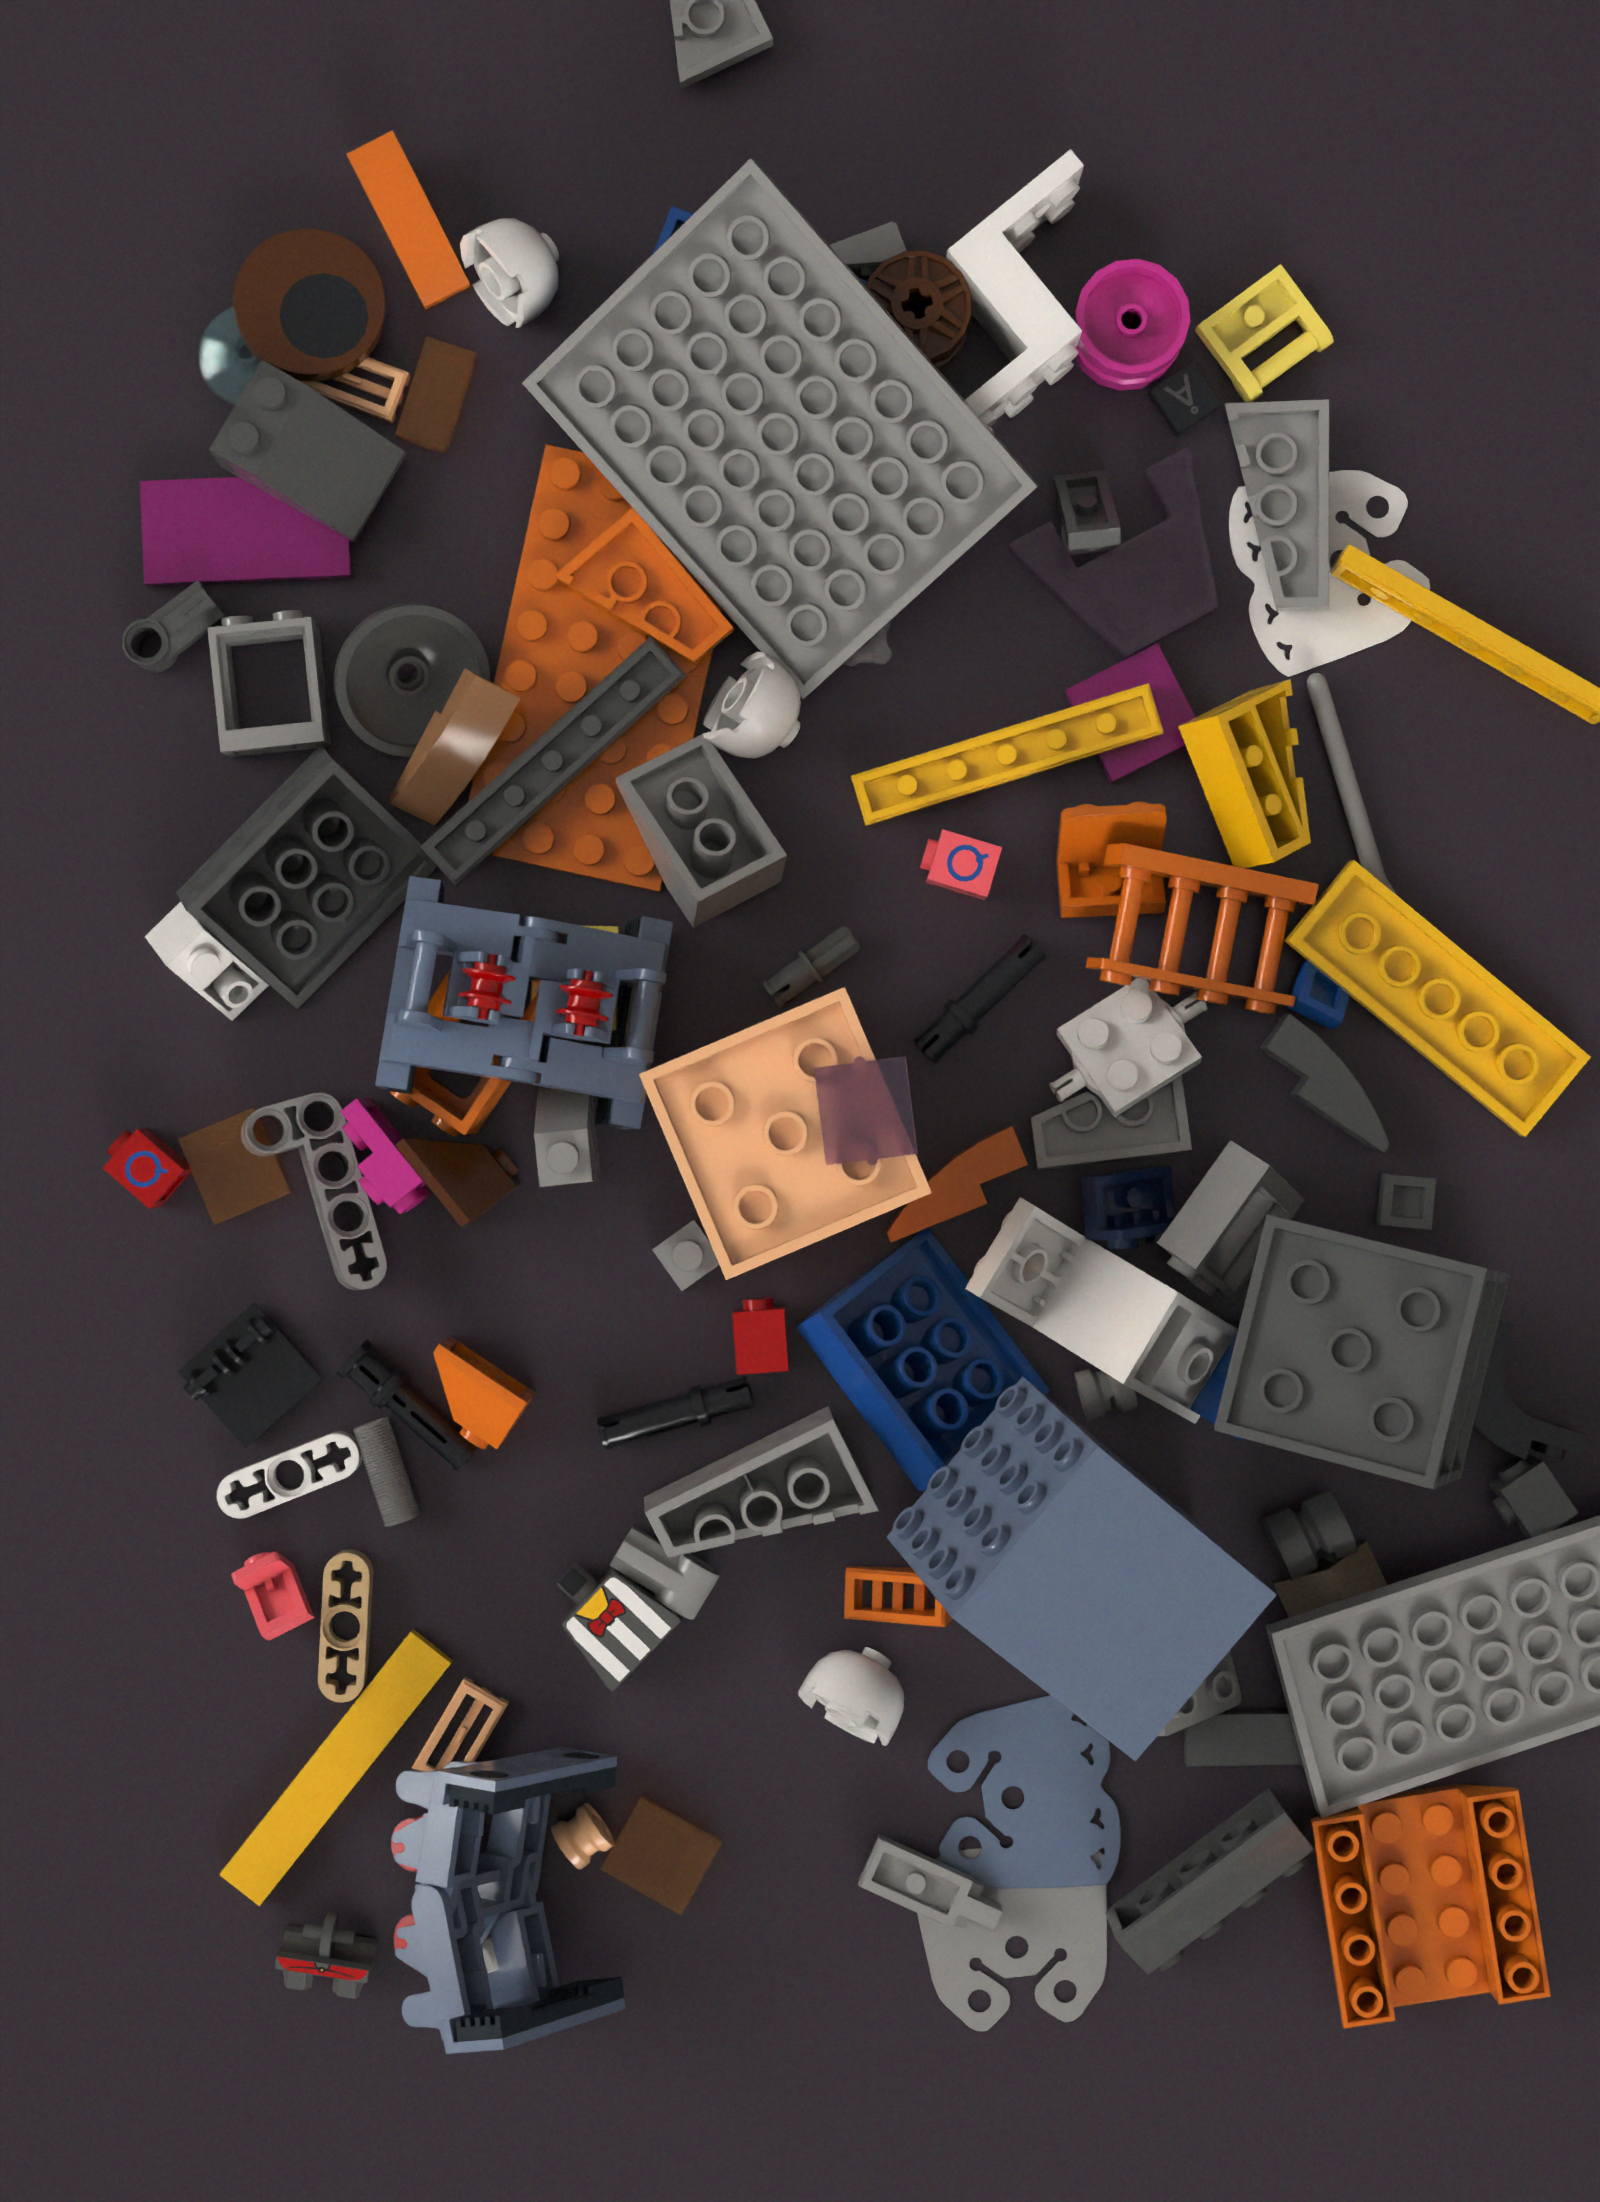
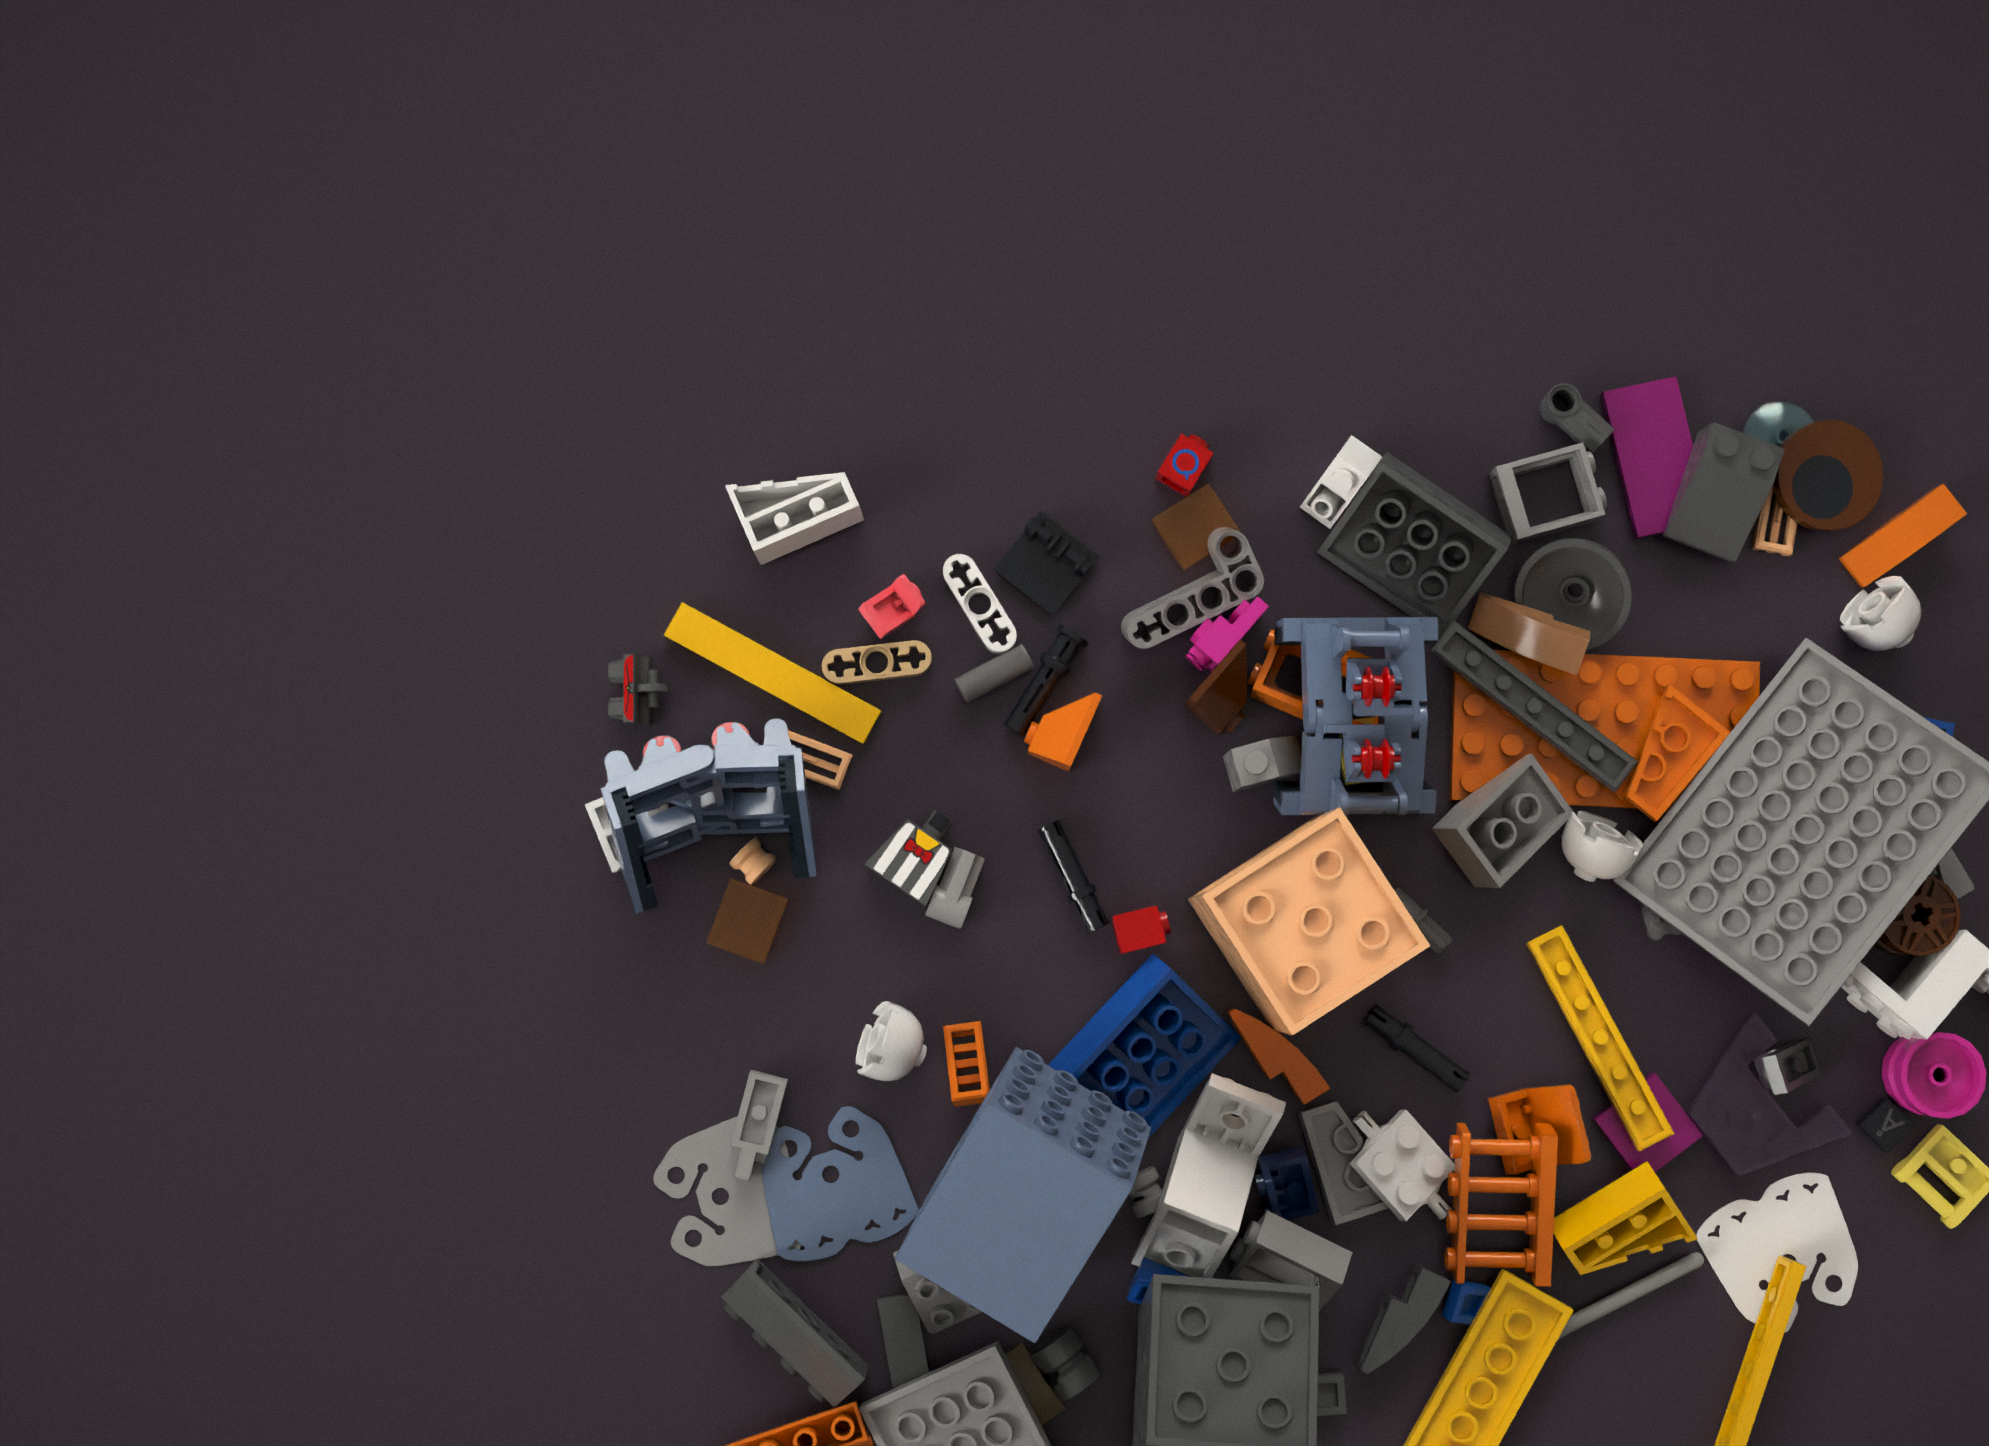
camera: 80 degrees right, 5 degrees down
(123, 1708) = (794, 512): none -> white wedge
(436, 395) = (1779, 576): clear orange tile -> none
(687, 1255) = (1189, 865): light grey plate -> none
(766, 1487) = (1036, 959): light grey wedge -> none
(865, 1110) = (1343, 976): piece -> none
(961, 864) = (1513, 1017): coral brick -> none
(1287, 484) = (1839, 1212): light grey wing -> none

